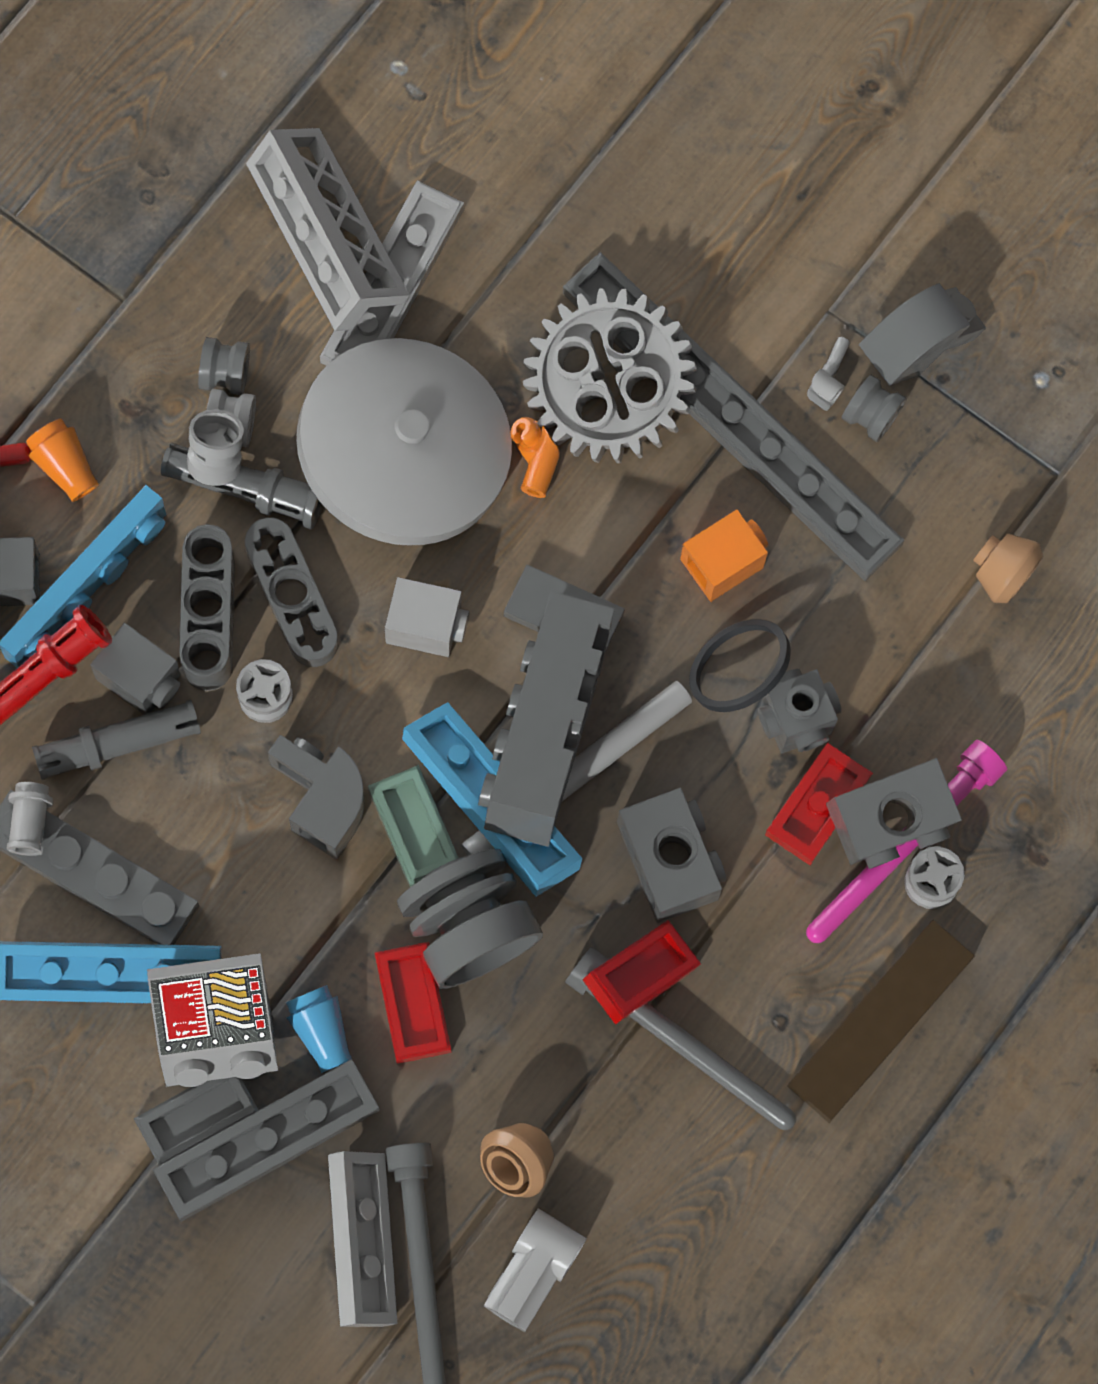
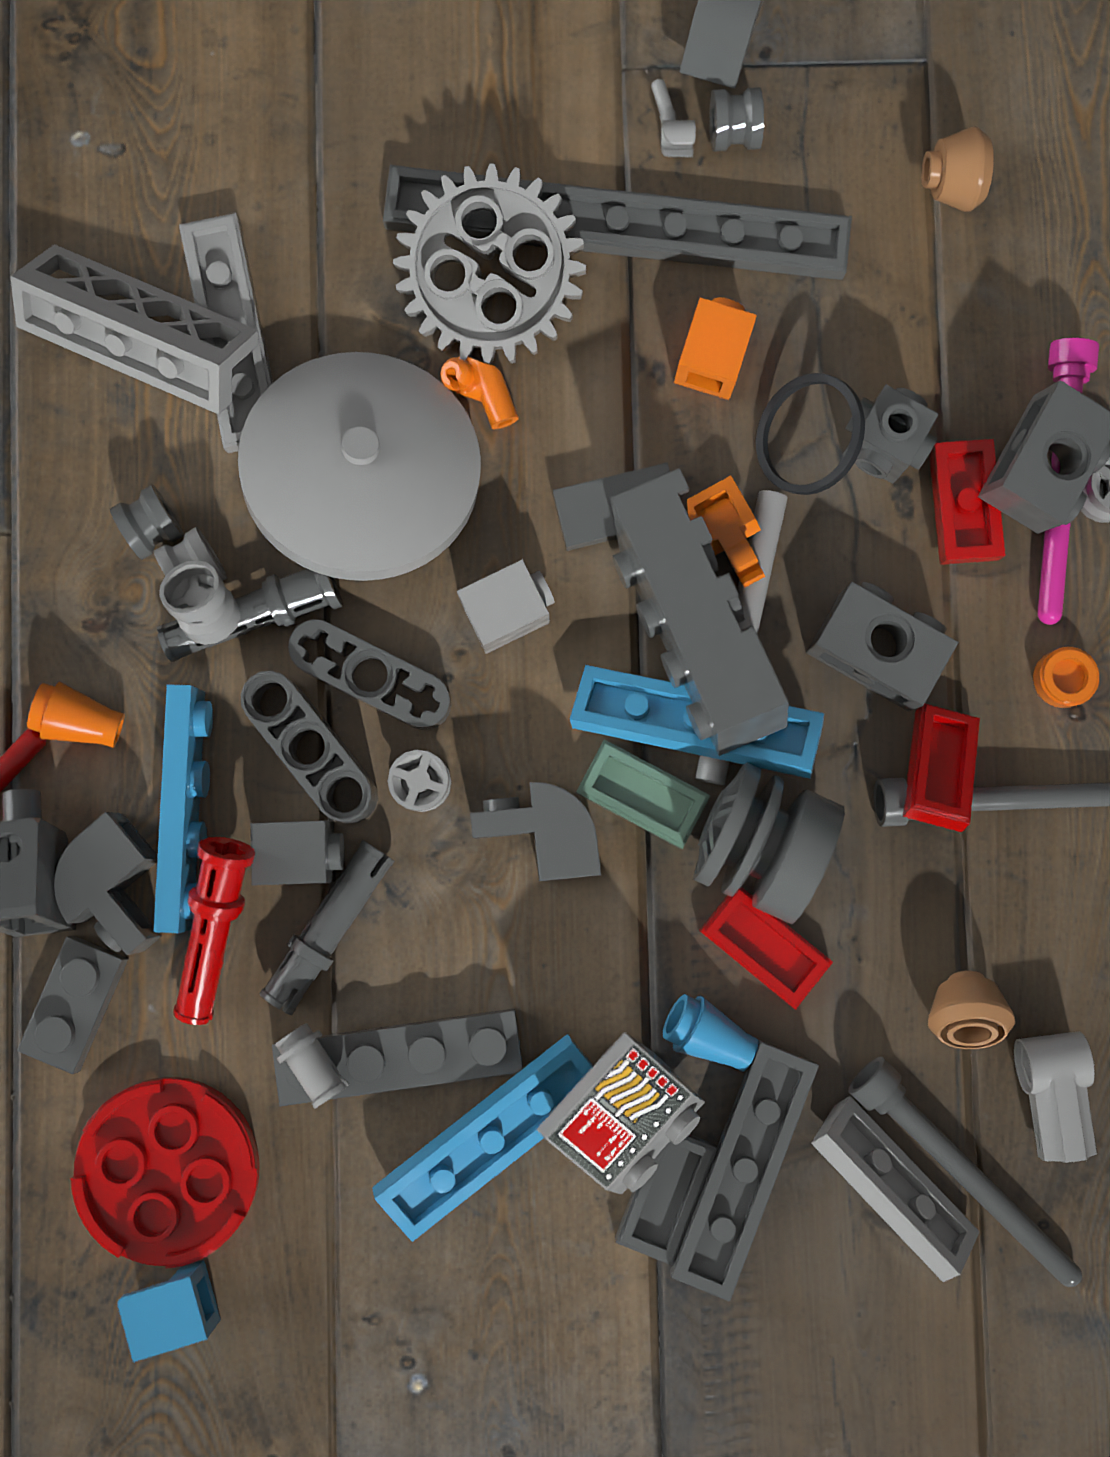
camera: 35 degrees left, 10 degrees up
(626, 679) = (729, 524): none -> orange plate
(790, 987) = (1066, 677): none -> orange tile

